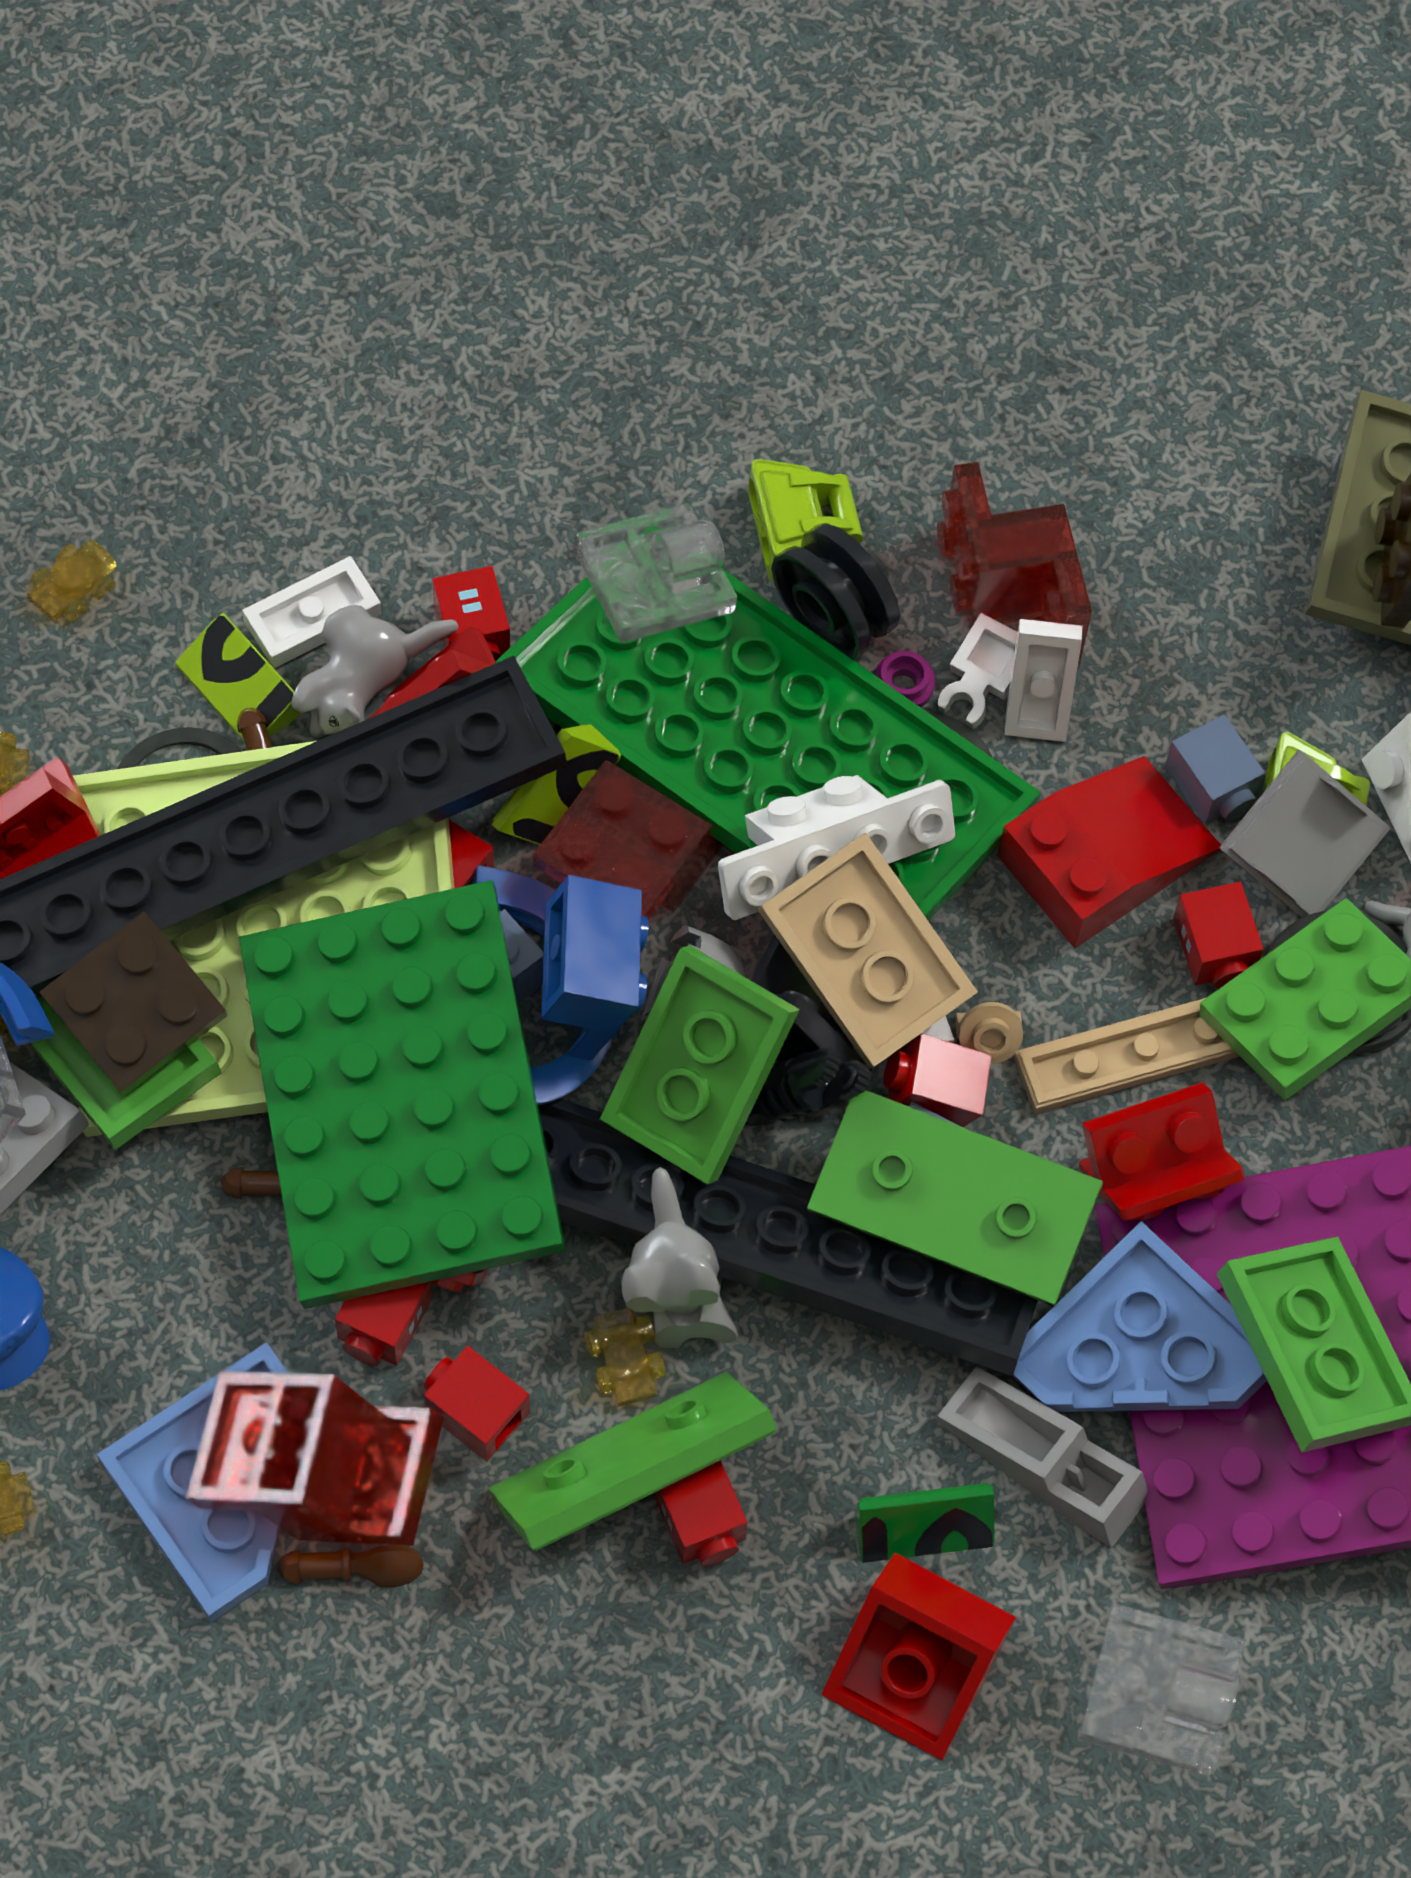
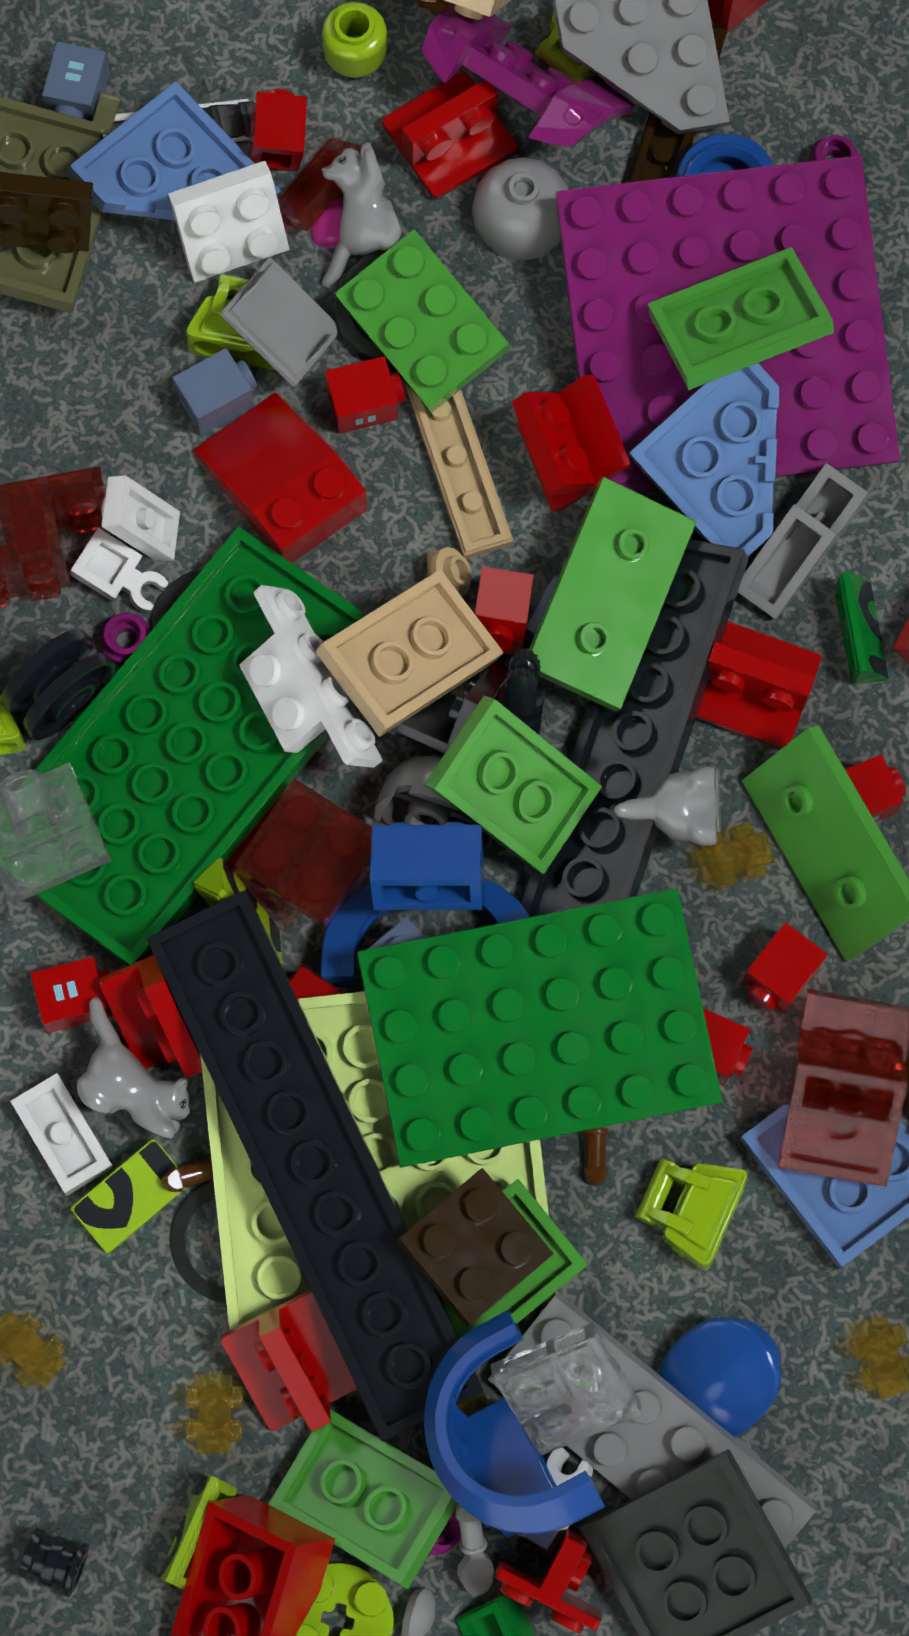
camera: 90 degrees left, 10 degrees up
(180, 1297) = (702, 1209): none -> lime piece
(851, 1389) = (757, 685): none -> red bracket

